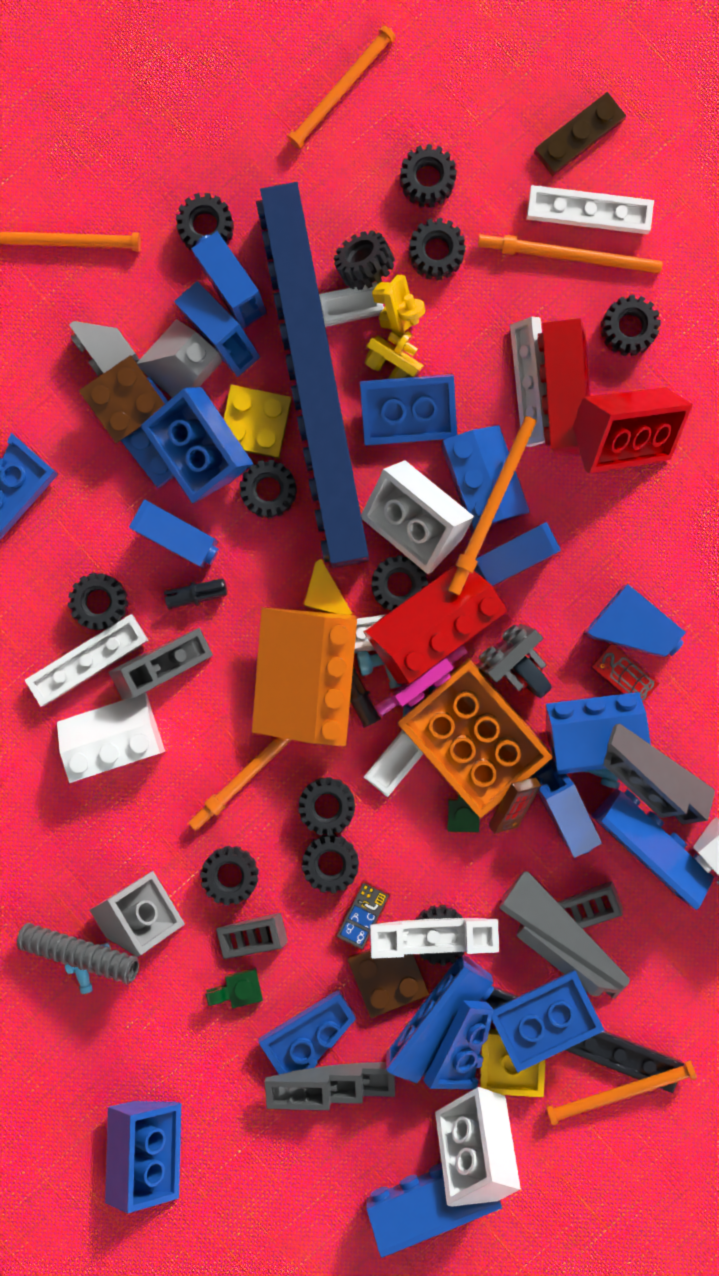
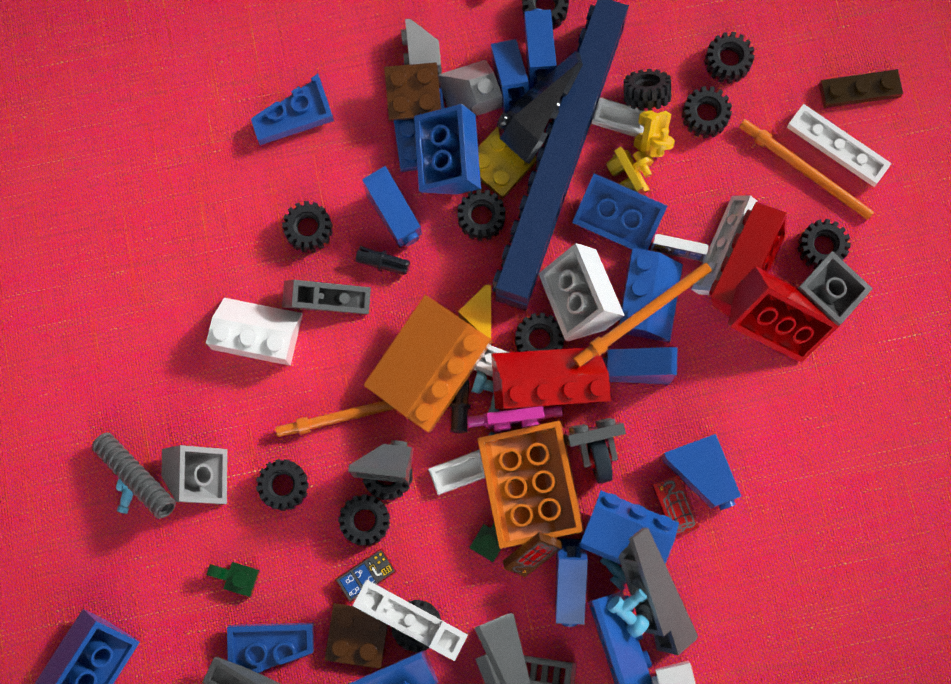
camera: 30 degrees right, 10 degrees down
(86, 660) = (273, 264): white plate -> none
(260, 360) = (527, 118): none -> black wedge
(277, 930) = (288, 548): dark grey slope -> none
(323, 801) = (385, 463): none -> dark grey slope
(487, 410) = (679, 247): none -> white tile
(654, 817) = (637, 623): none -> medium azure piece
(669, 369) = (835, 288): none -> dark grey slope

